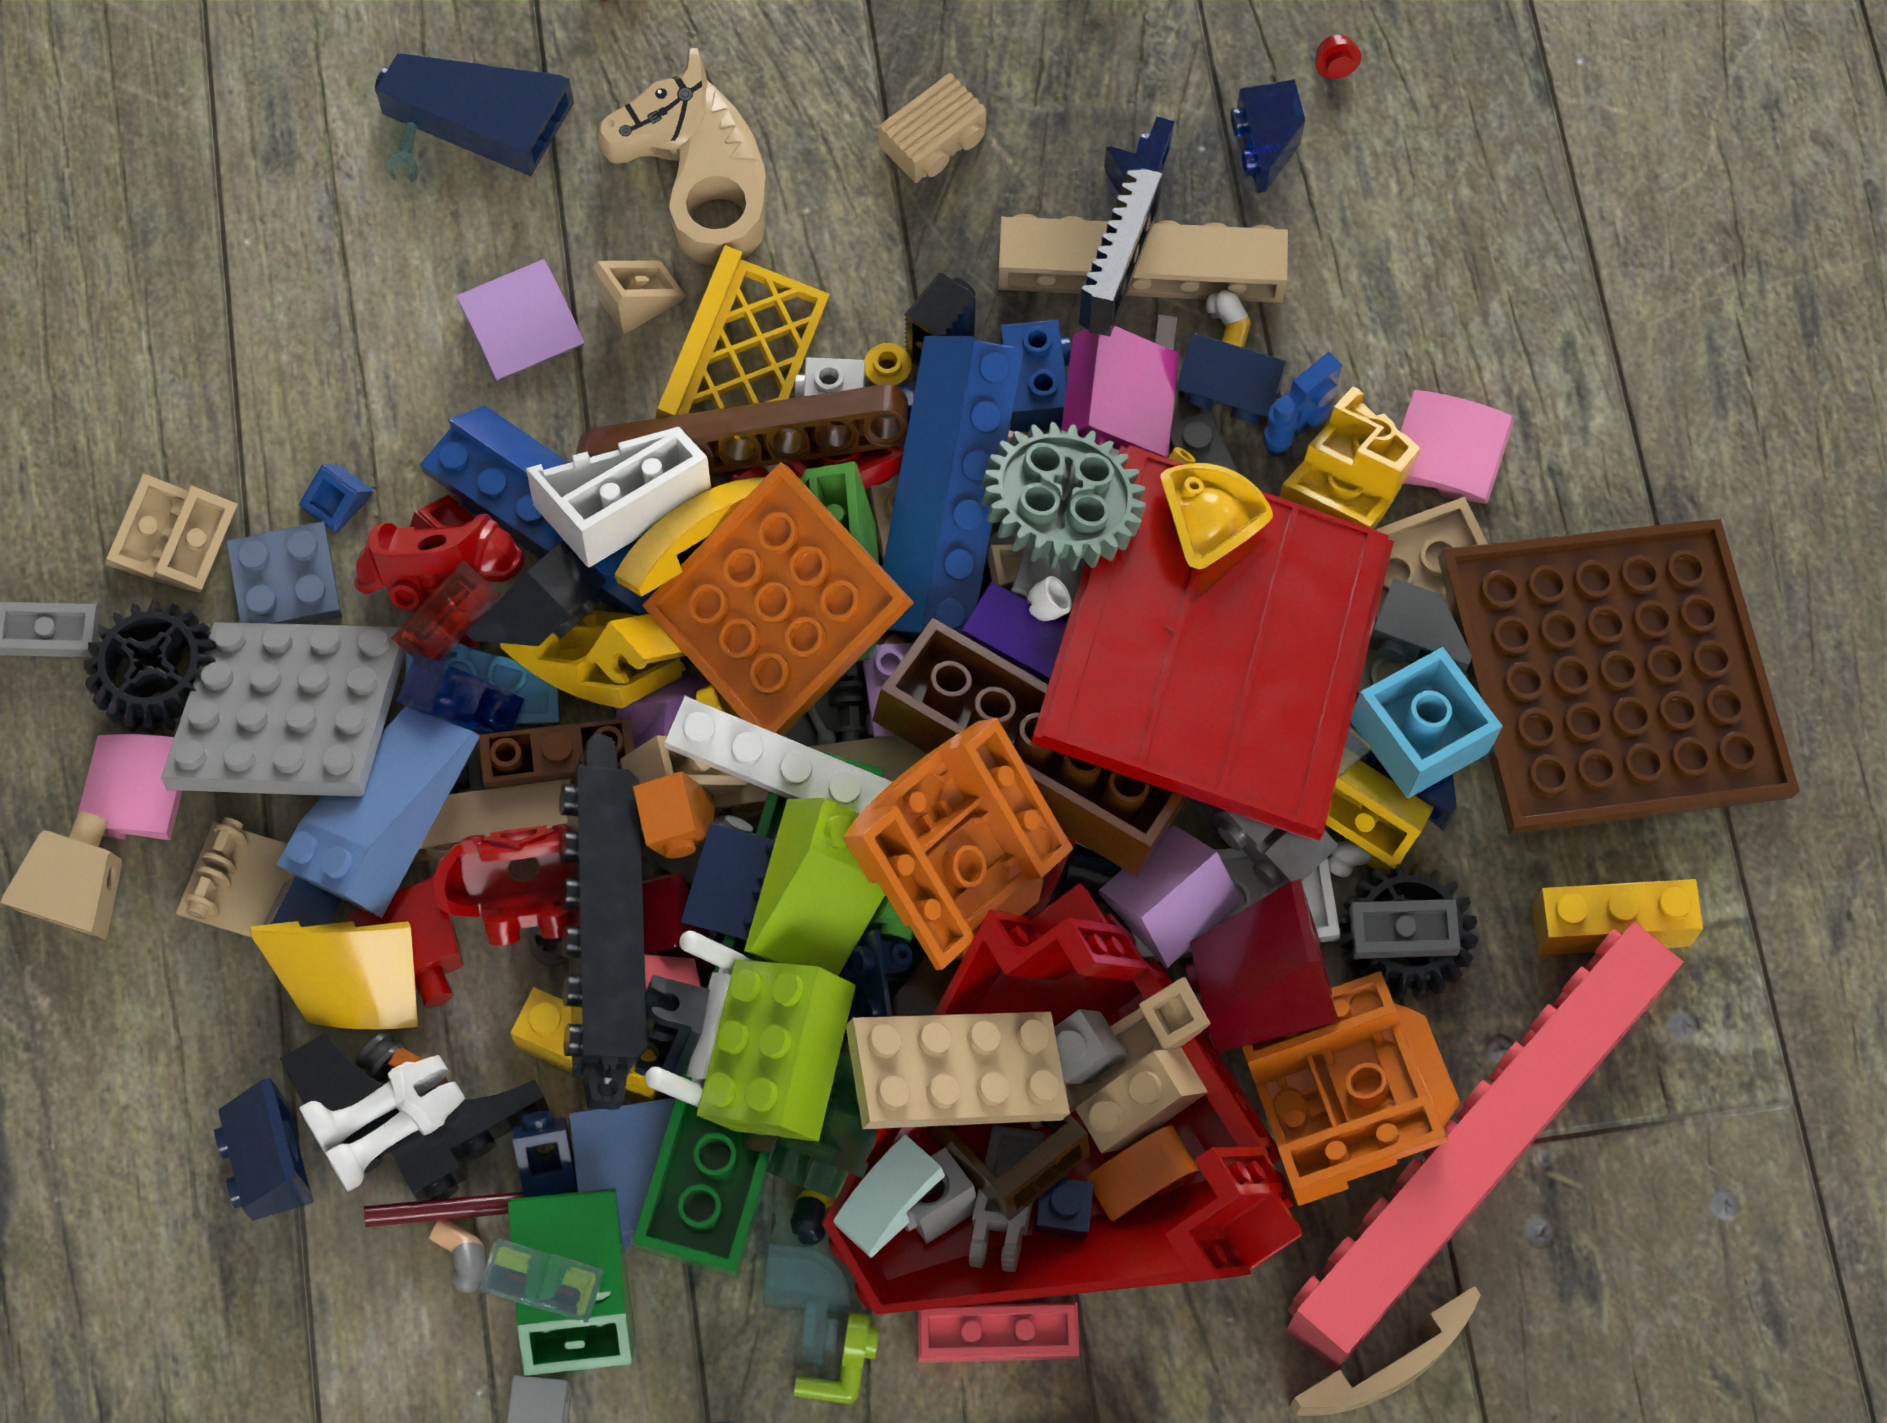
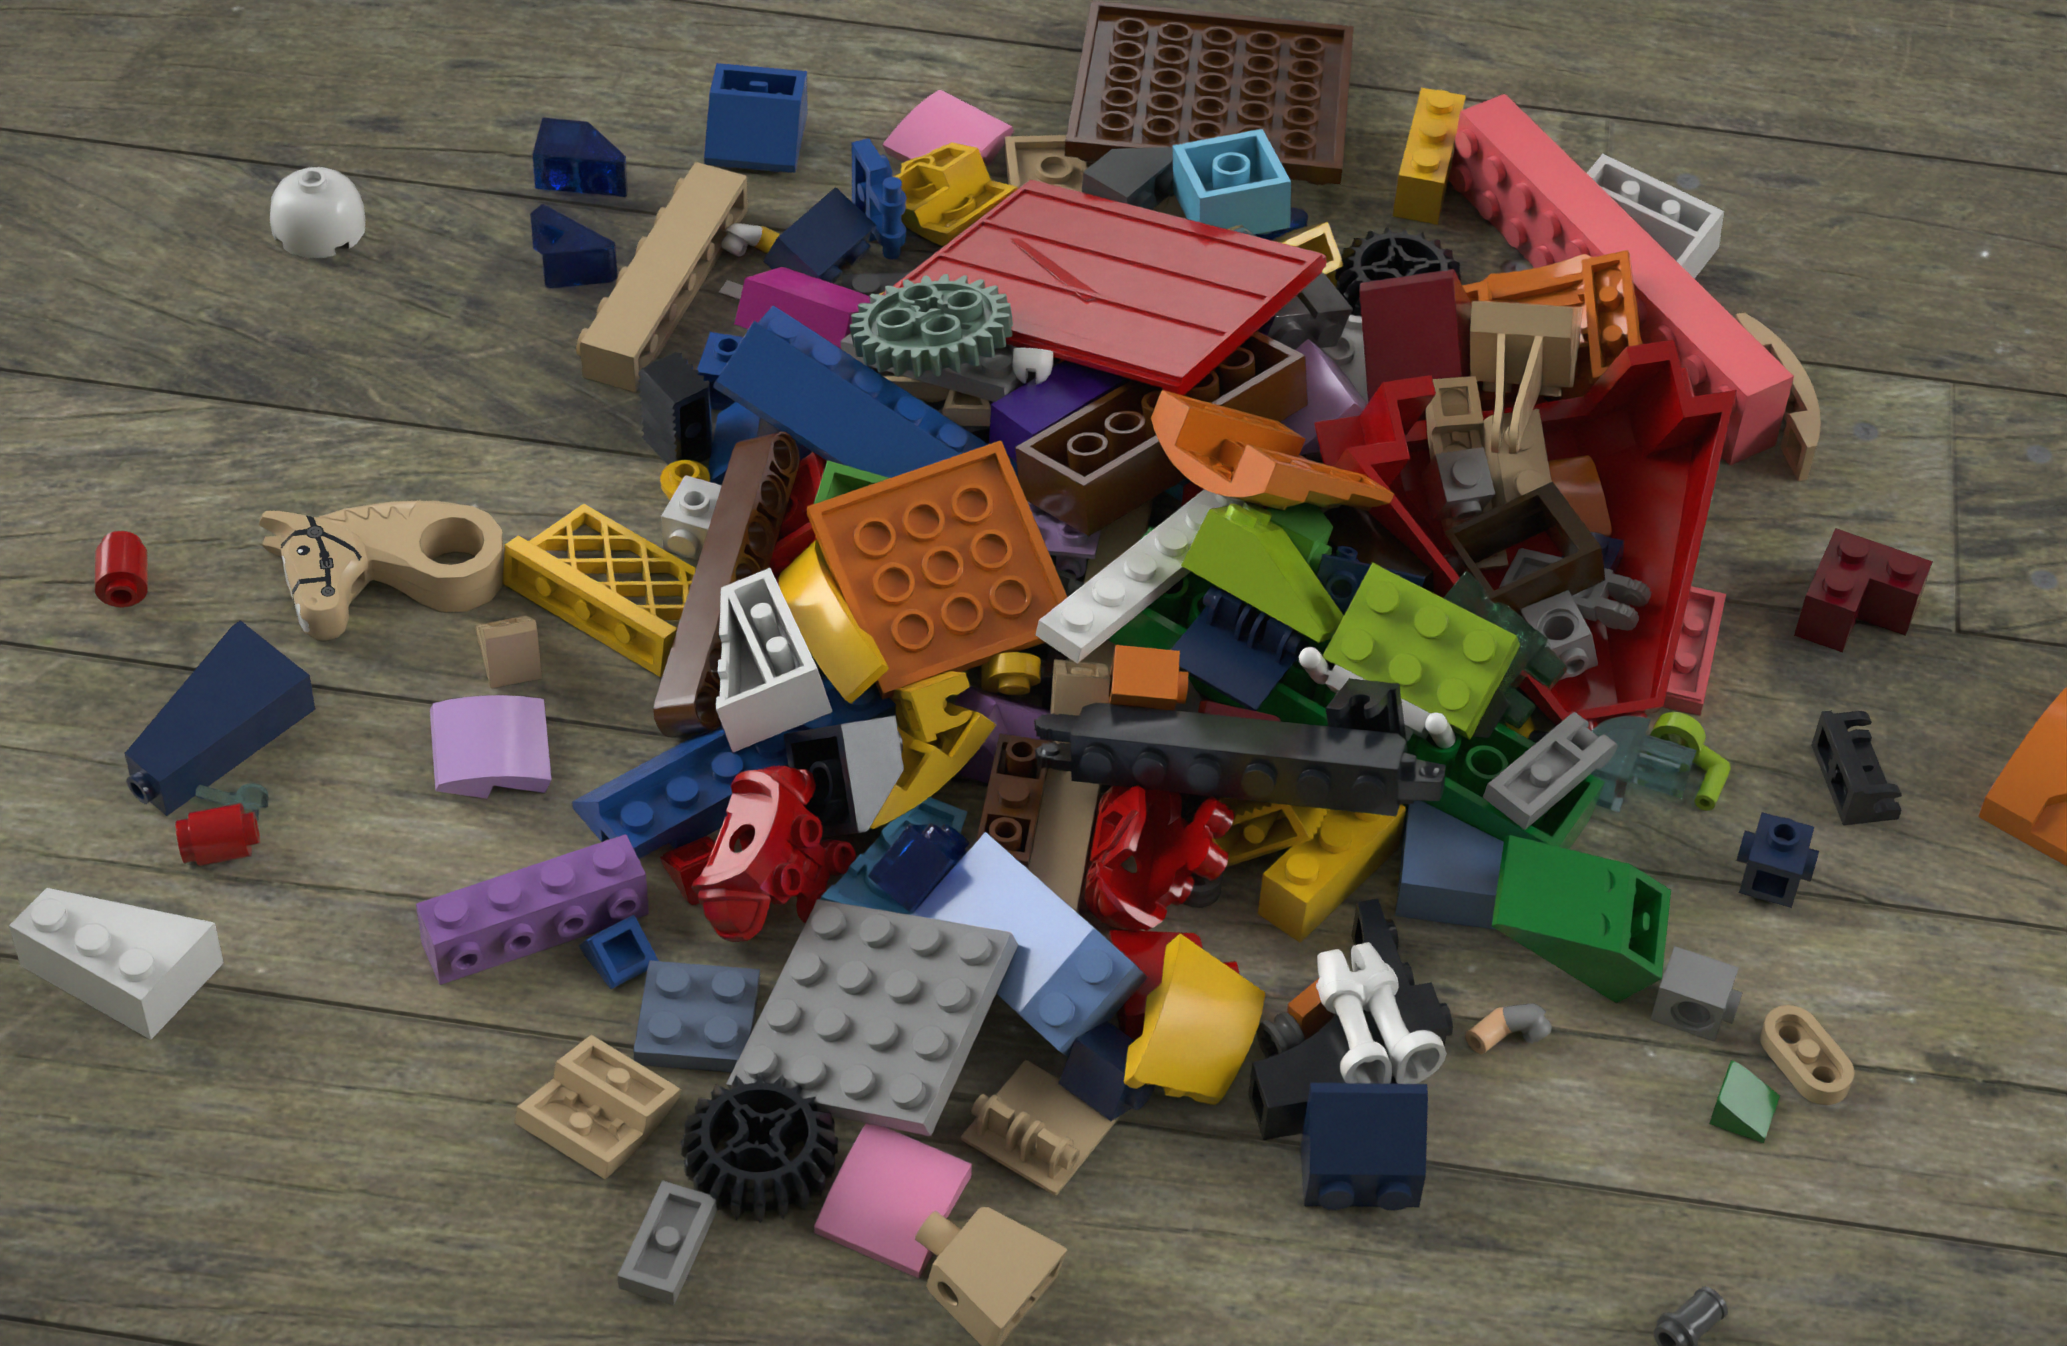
camera: 75 degrees left, 20 degrees down
(203, 133) = (117, 955): none -> white wedge
(342, 413) = (532, 909): none -> medium lavender brick
(355, 155) = (217, 835): none -> red brick
(440, 1209) = (1465, 1002): dark red bar -> none
(446, 614) = (829, 835): clear red slope -> none
(541, 1280) = (1586, 911): clear light blue slope -> none
(544, 1172) = (1437, 918): dark blue brick -> none
(710, 1212) = (1549, 770): none -> light grey plate
(886, 1193) = (1586, 668): light aqua slope -> none
(933, 128) = (446, 379): tan brick -> none
(956, 1069) = (1482, 527): tan plate -> none
(1120, 251) = (681, 246): gear -> none
(1212, 510) = (983, 249): yellow hat -> none
(1282, 1064) = (1523, 347): none -> tan slope
(1337, 57) = (523, 99): red plate -> none
(1386, 264) = (756, 118): none -> blue slope
(1404, 929) = (1412, 248): dark grey plate -> none
(1588, 1171) = (1673, 218): none -> white wedge

